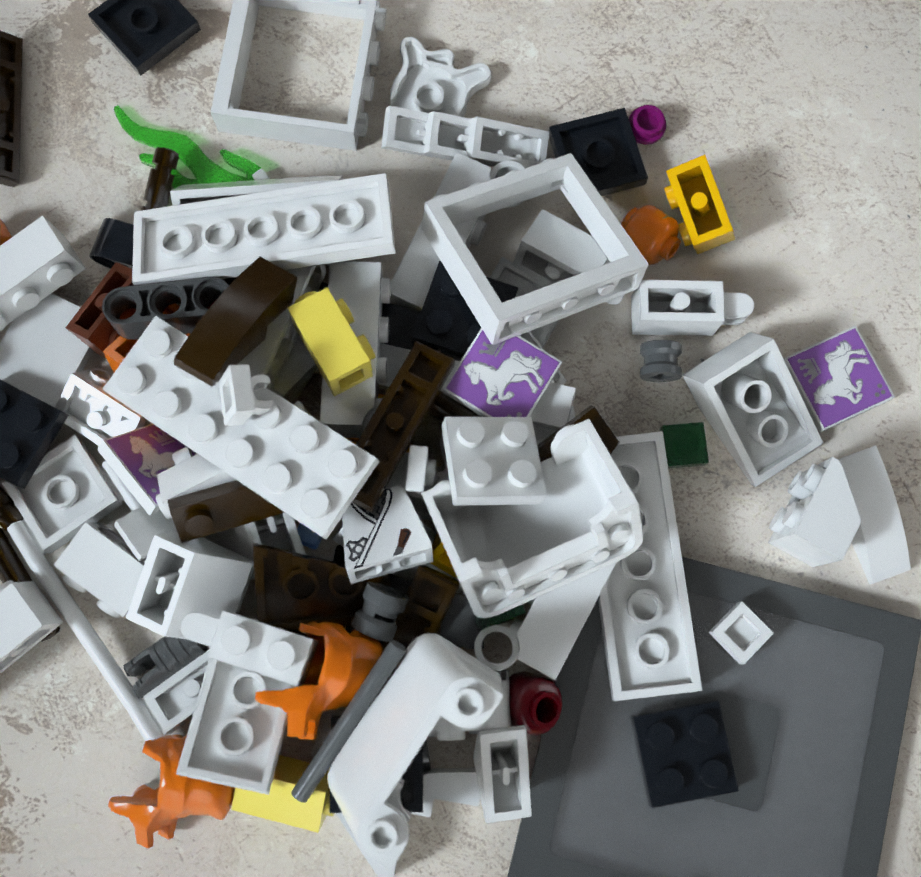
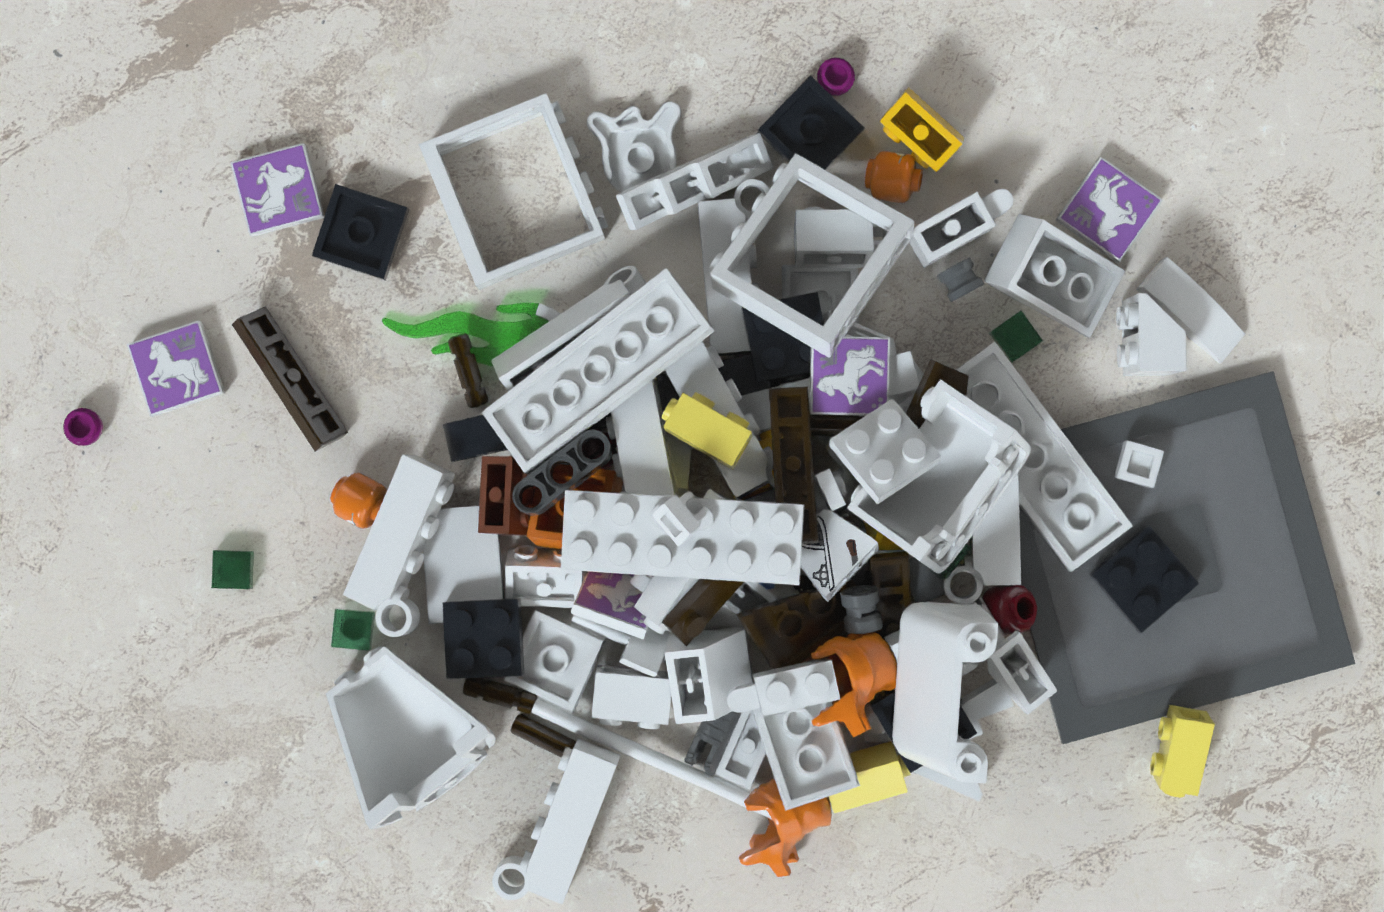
camera: 30 degrees left, 10 degrees up
(237, 321) = (633, 460): dark brown slope -> none
(348, 721) = (888, 701): dark grey bar -> none

